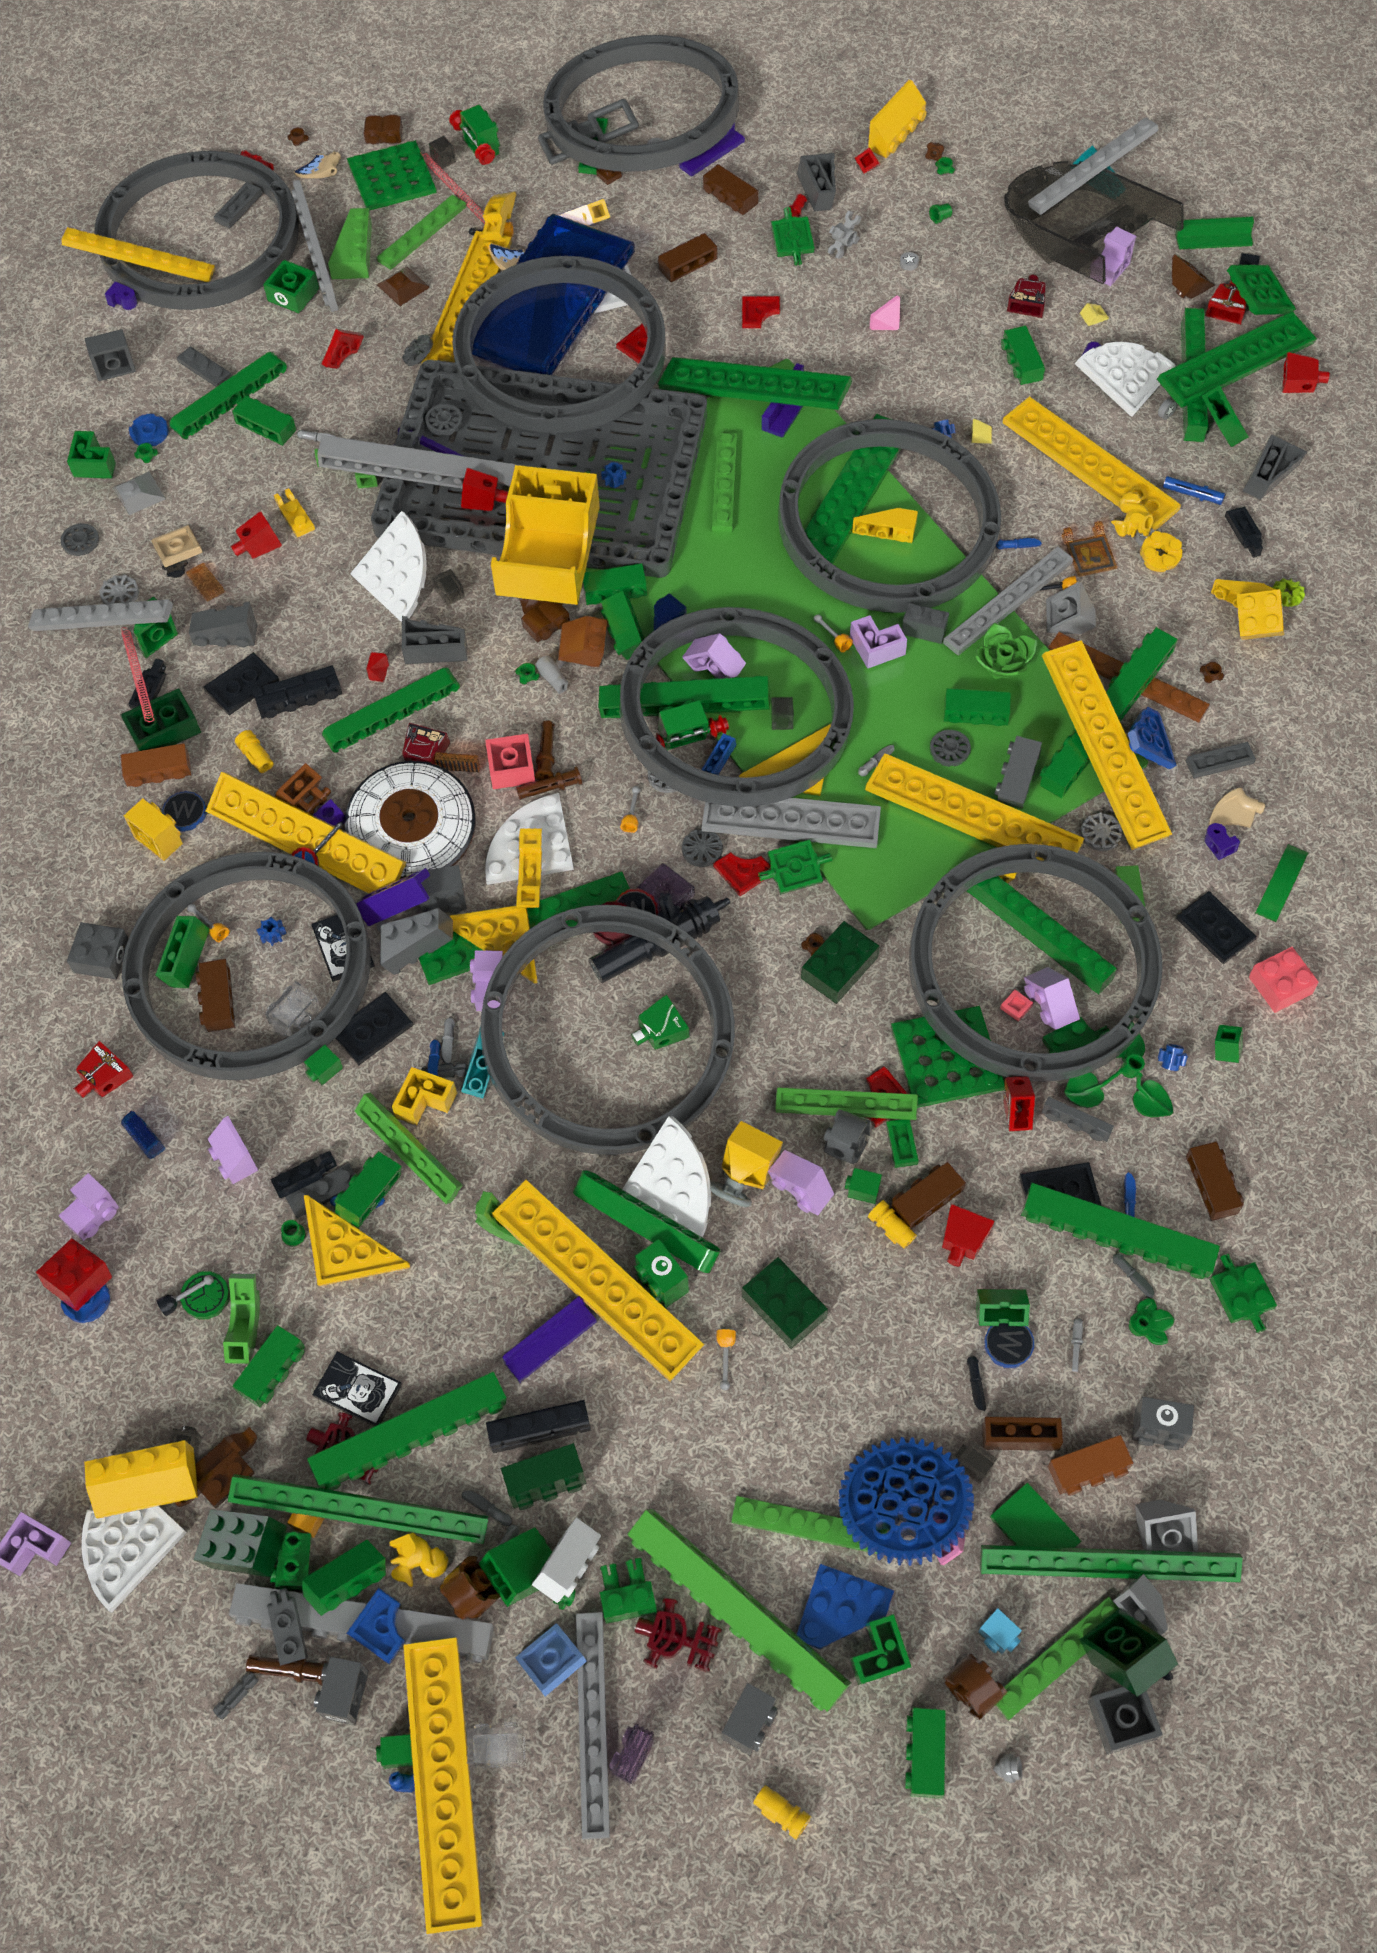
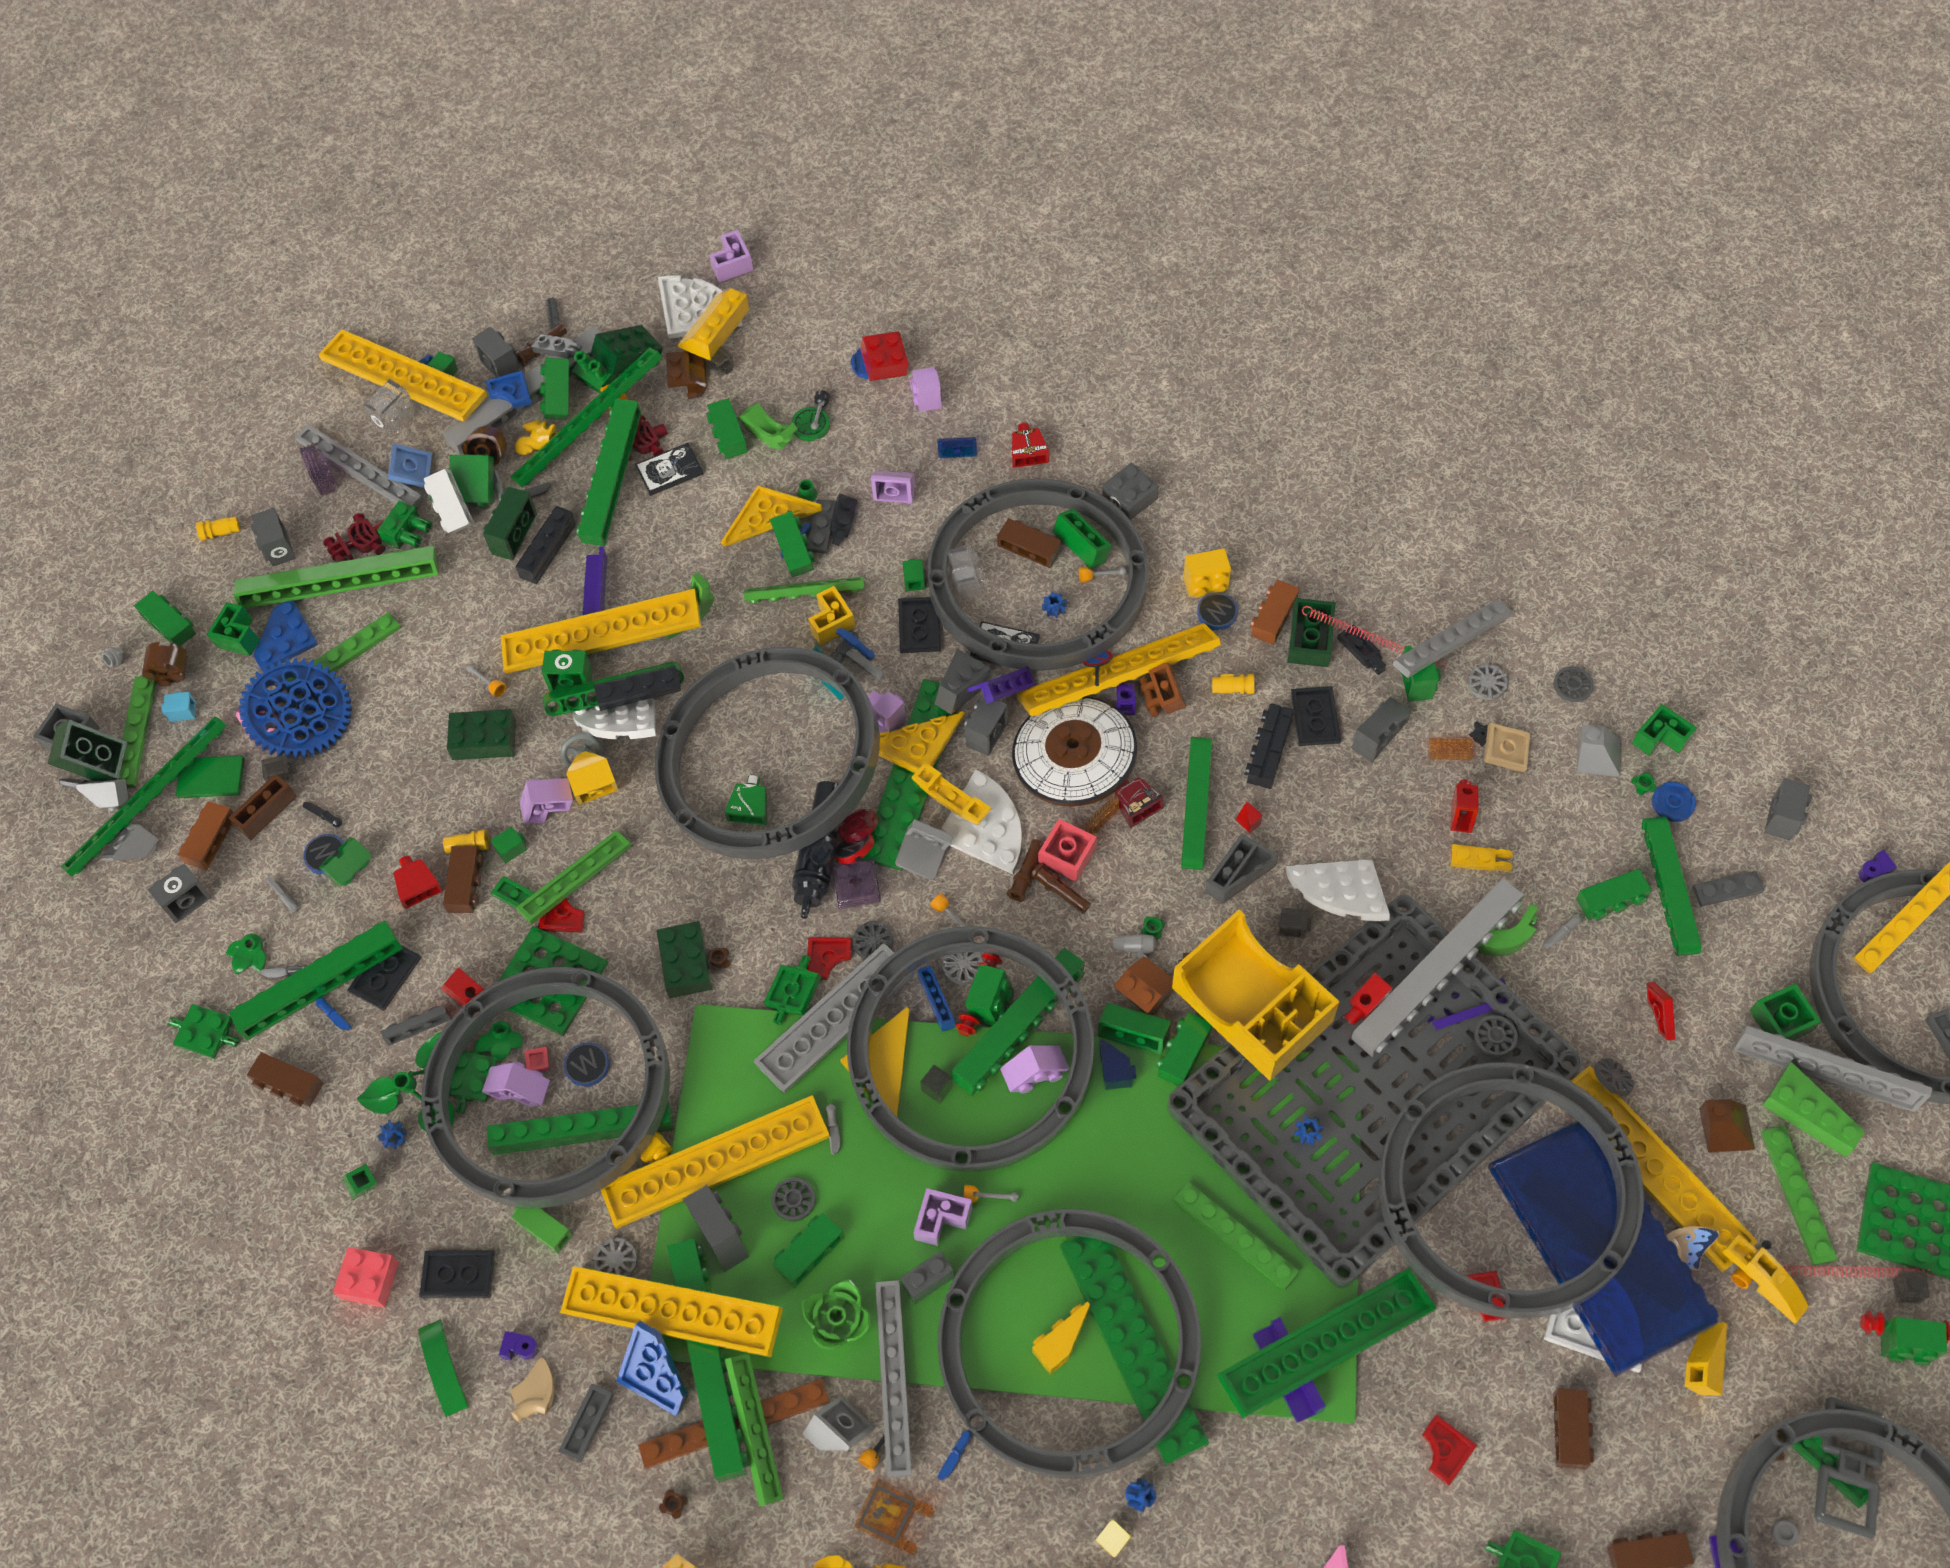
camera: 130 degrees right, 0 degrees up
(595, 863) = (923, 849): none -> light grey bracket
(634, 1183) = (637, 688): none -> black brick
(847, 1136) = (548, 855): dark grey brick -> none
(985, 970) = (586, 1064): none -> black tile
(1029, 1041) = (499, 1043): none -> green plate
(1125, 647) = (754, 1429): none -> bright green plate

